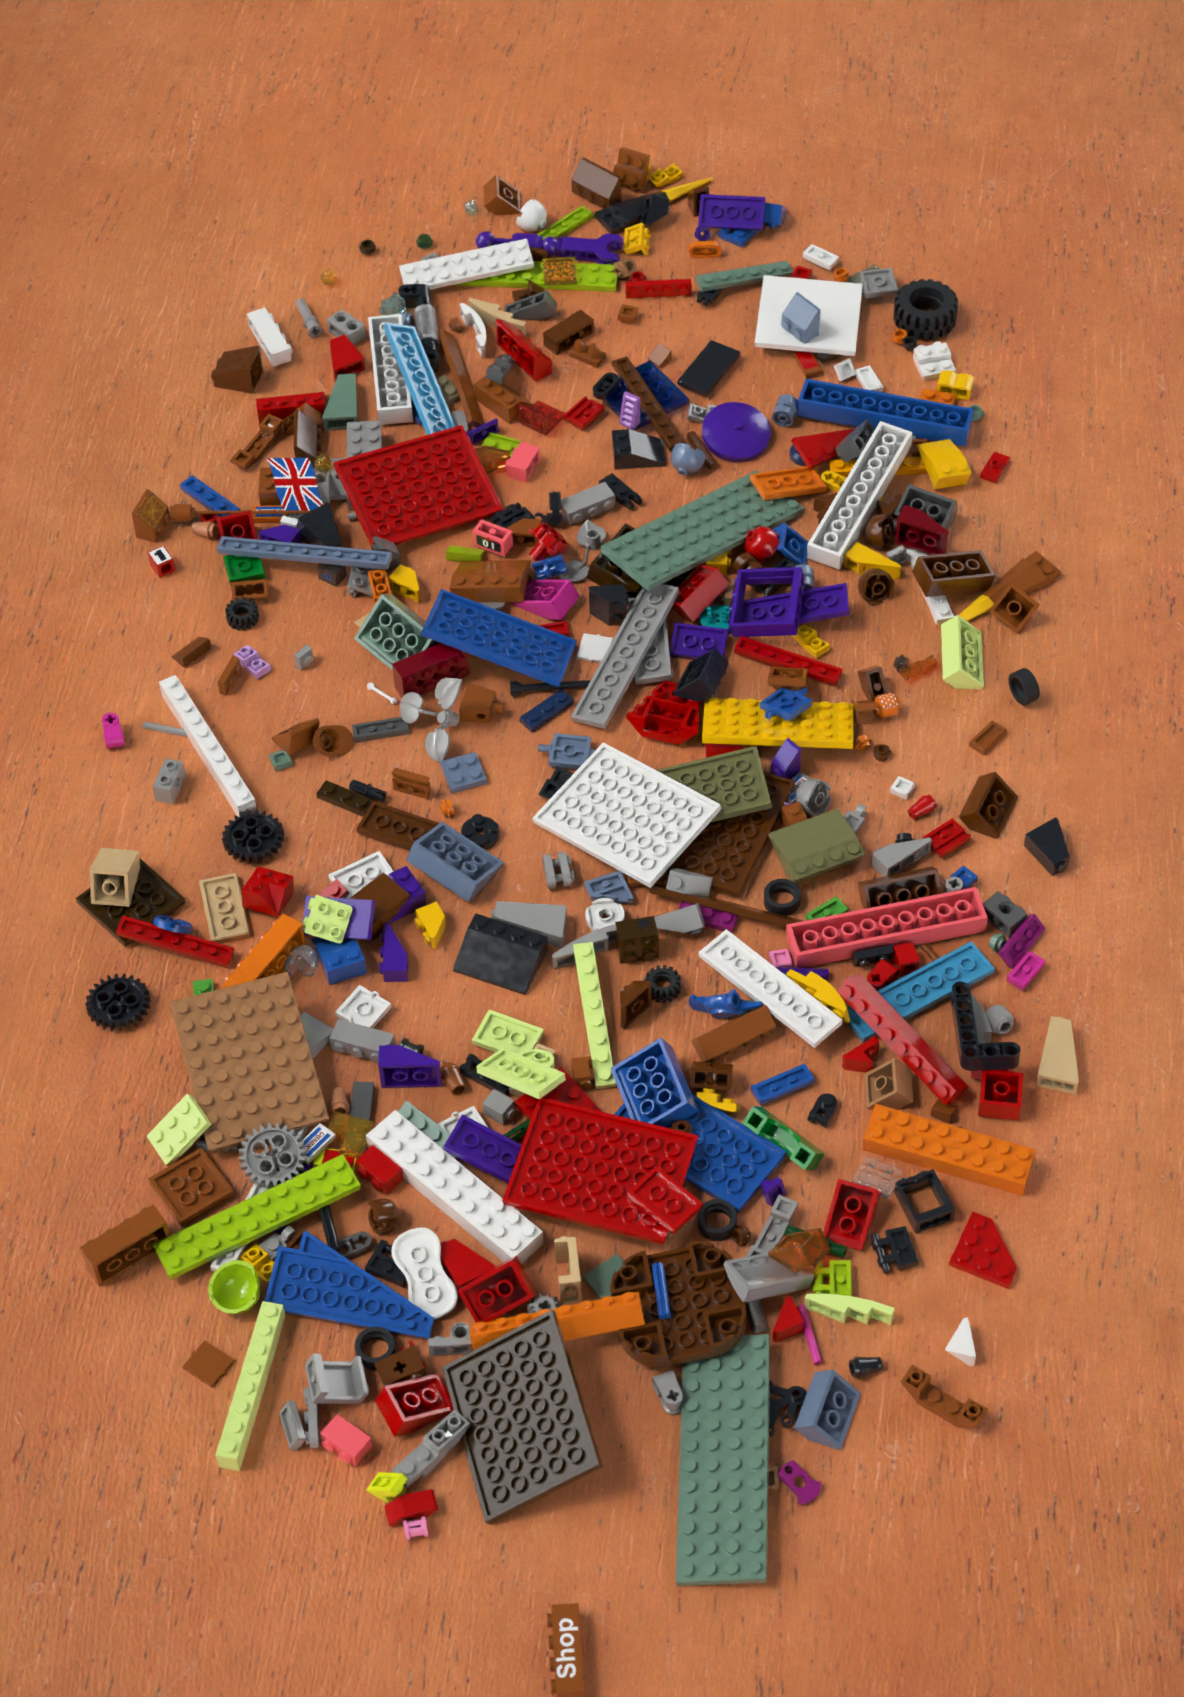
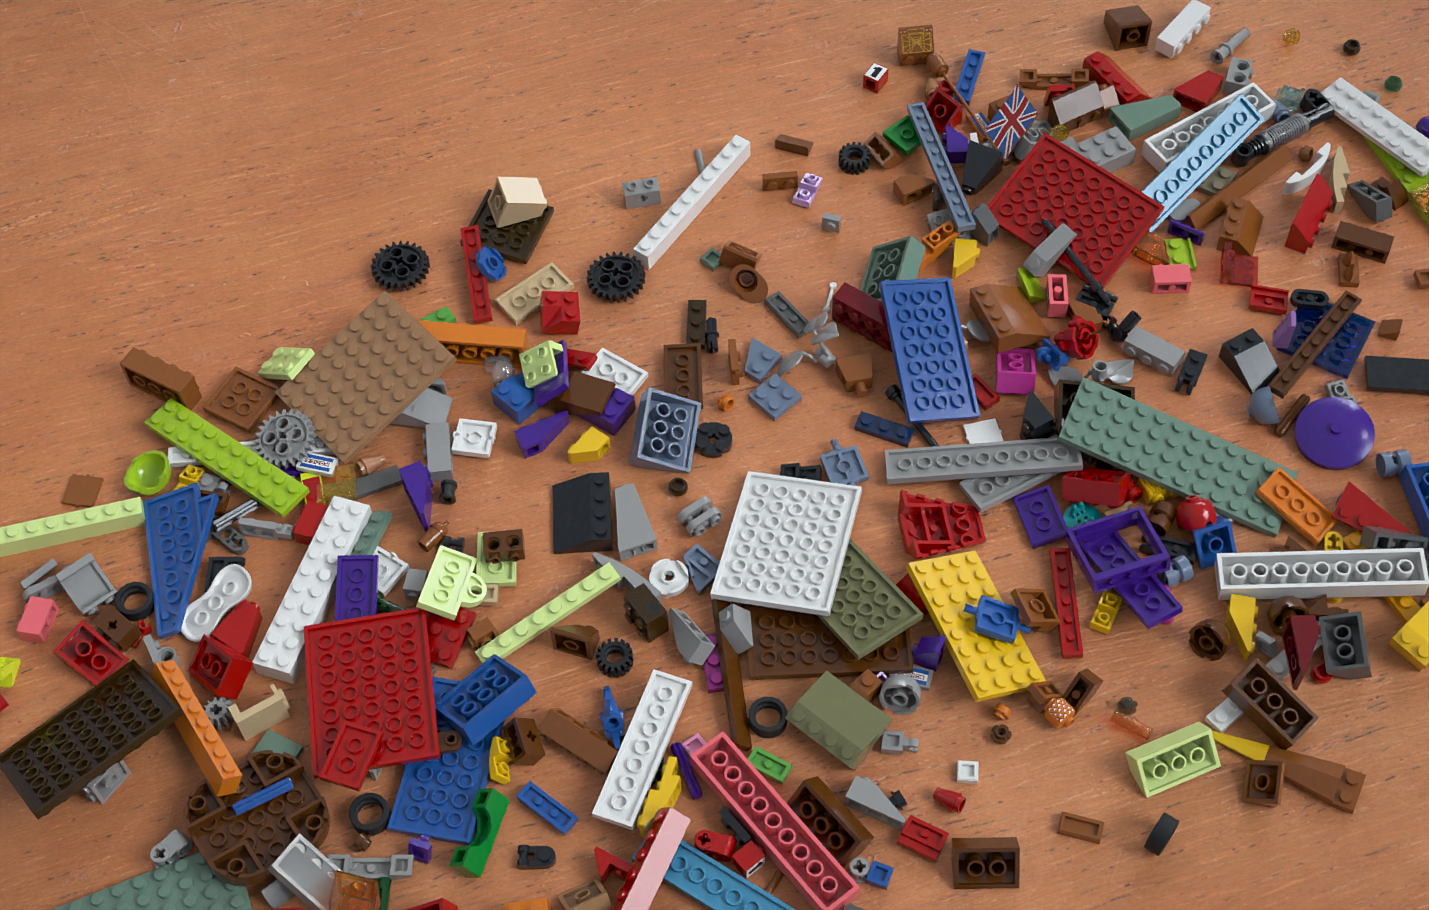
camera: 65 degrees right, 5 degrees up
(112, 731) = (672, 132): dark pink piece -> none
(283, 443) = (1056, 90): none -> red plate
(306, 587) = (912, 188): none -> dark orange slope
(360, 1212) = (265, 529): none -> light grey hinge
(385, 1215) = (264, 545): reddish brown helmet -> none
(417, 763) = (760, 361): none -> sand blue wing
(433, 1449) = (46, 687): light grey slope -> none
(448, 519) = (1049, 251): none -> light grey slope
(500, 368) = (1267, 209): dark grey slope -> none
(502, 508) = (1095, 285): none -> black bar
(502, 1019) = (503, 541): none -> reddish brown brick
(514, 875) = (678, 486): none -> dark brown plate
(702, 677) = (994, 536): black slope -> none

